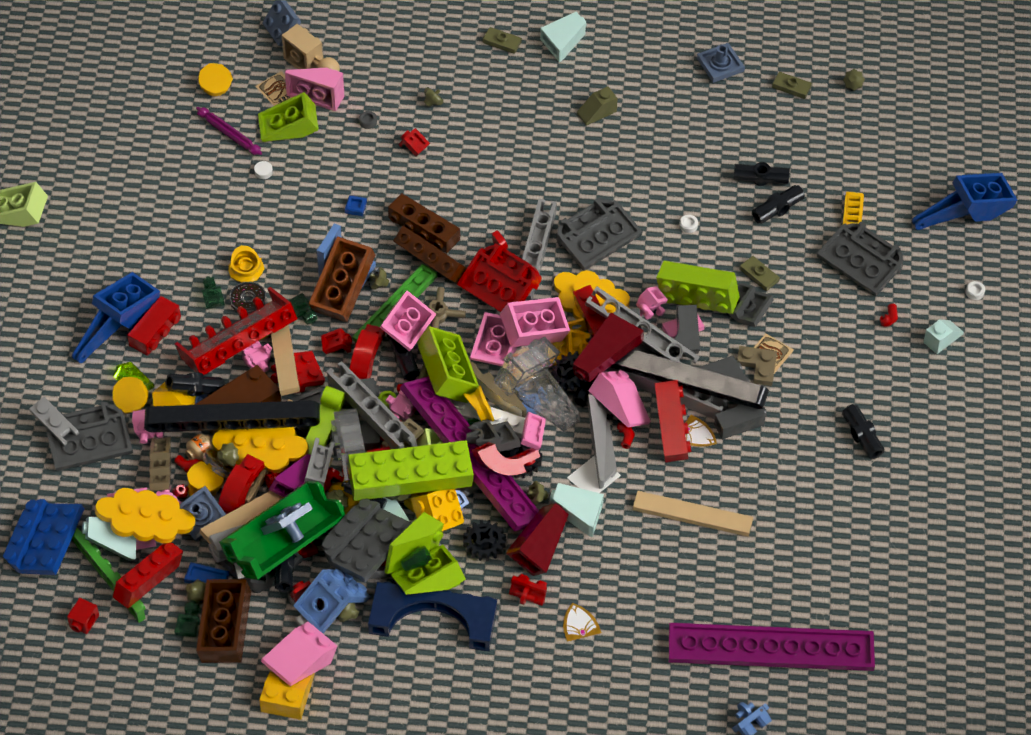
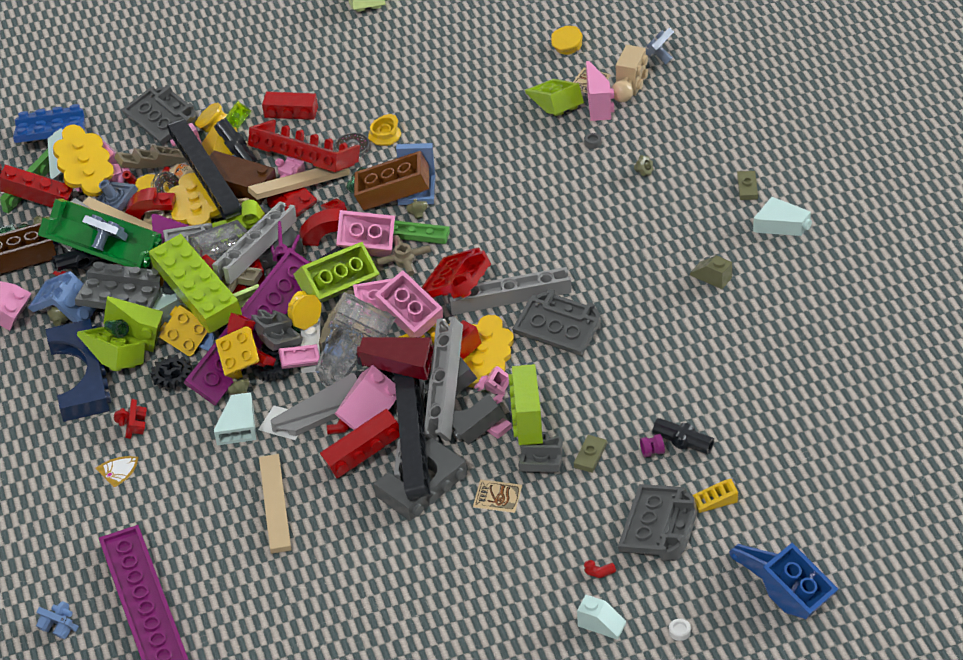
camera: 70 degrees right, 10 degrees down
(53, 420) = (158, 85): light grey hinge -> none
(118, 305) = (285, 74): blue slope -> none
(212, 294) = (341, 125): clear green plate -> none
(228, 454) = (168, 182): olive piece -> none
(229, 131) = (521, 69): magenta wheel -> none
(263, 170) = (493, 103): white tile -> none
(355, 205) = (492, 168): blue tile -> none
(392, 395) = (281, 249): none -> magenta plant
(414, 141) = (584, 173): red bracket -> none
(424, 223) = (495, 212): reddish brown brick -> none
(429, 254) = (460, 224): reddish brown brick -> none
(499, 239) = (506, 264): red tile -> none
(519, 469) = (237, 352): none -> yellow bracket
(539, 539) = (179, 402): dark red slope -> none
(688, 223) = (617, 383): white tile -> none
(699, 433) = (369, 473): sticker -> none
(720, 62) = (834, 334): sand blue plate -> none
(761, 174) = (712, 410): black piece -> none
(761, 360) = (481, 494): dark tan plate -> none
(778, 228) = (652, 445): none -> magenta wheel
(792, 85) = (849, 397): olive plate -> none
(854, 79) = (890, 438): olive piece -> none
(863, 431) = (437, 594): black piece -> none

